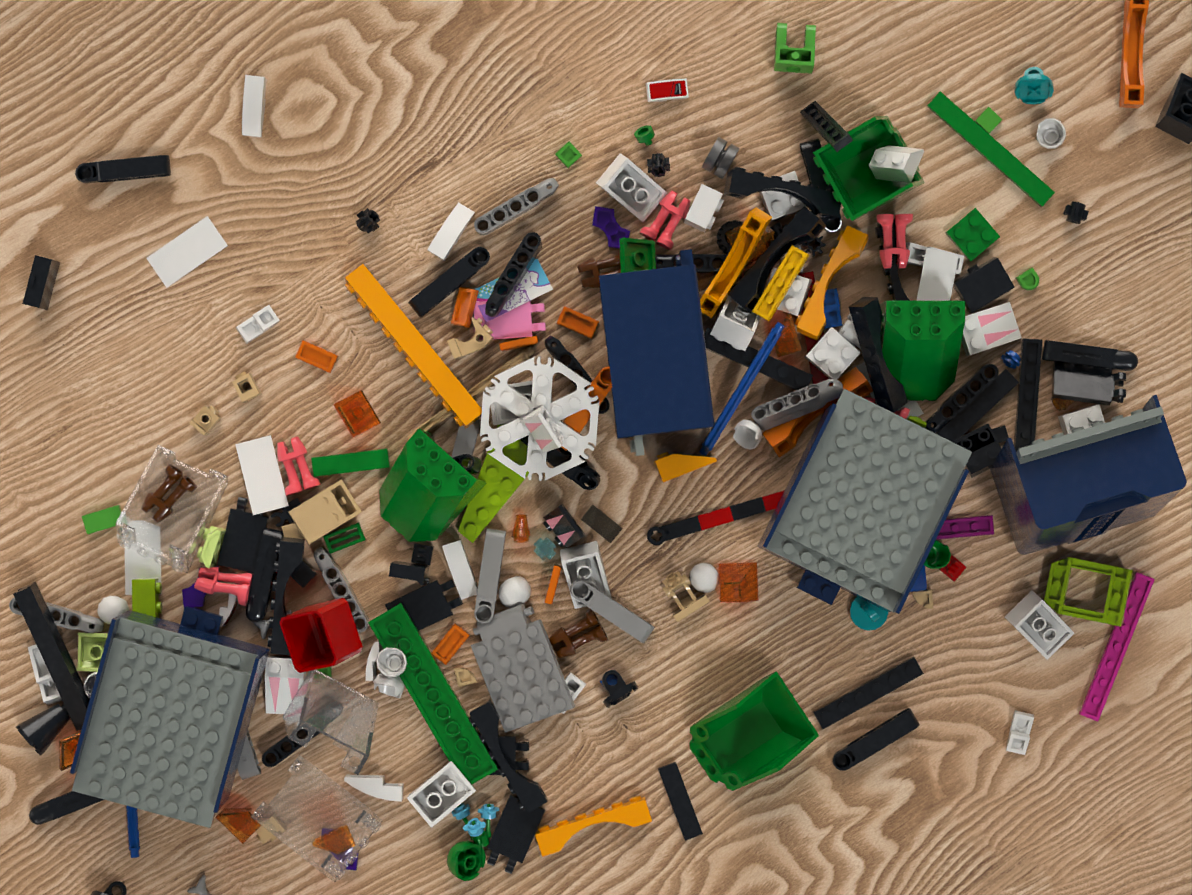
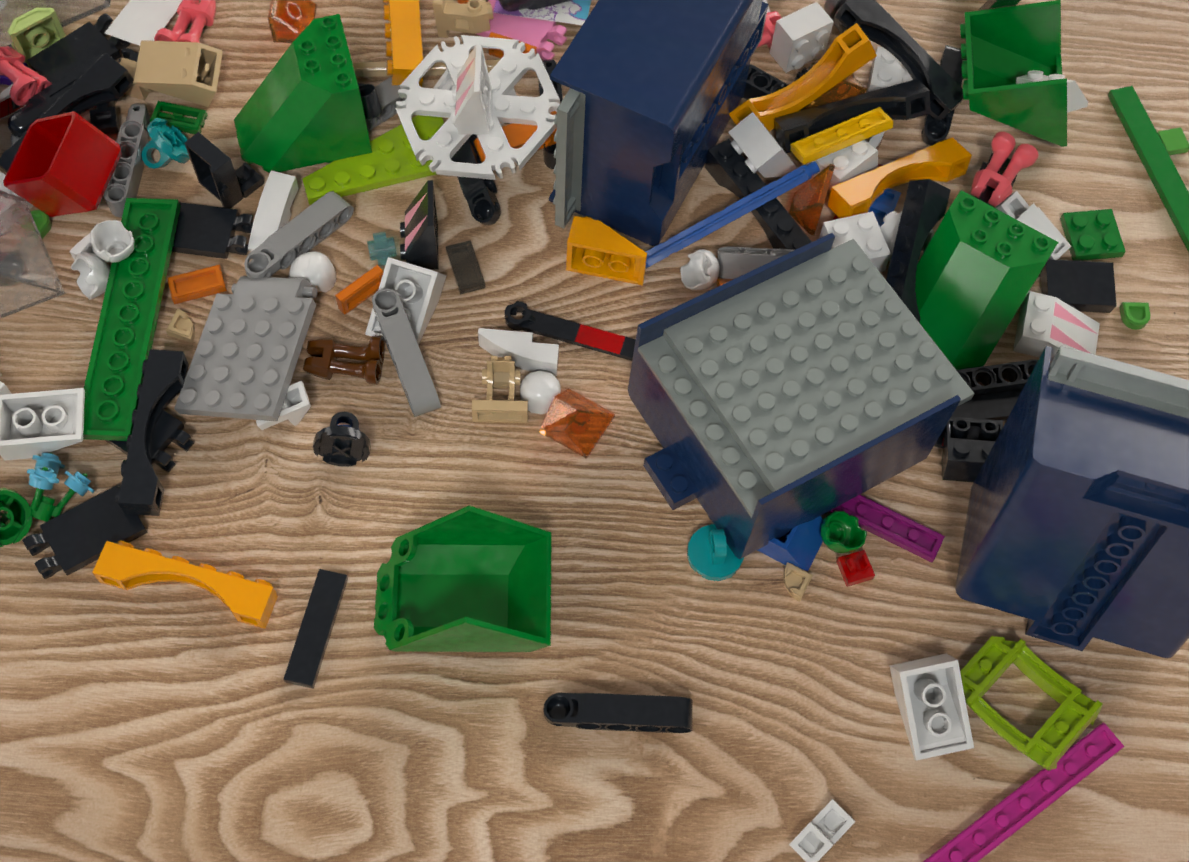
camera: 30 degrees right, 25 degrees down
(350, 462) = (241, 52): green tile -> none
(360, 566) = (167, 141): none -> teal tile
(521, 529) = (370, 218): clear orange cone -> none
(675, 560) = (521, 348): none -> white slope
(817, 249) = (901, 140): black gear -> none
(868, 692) = (650, 650): black plate -> none

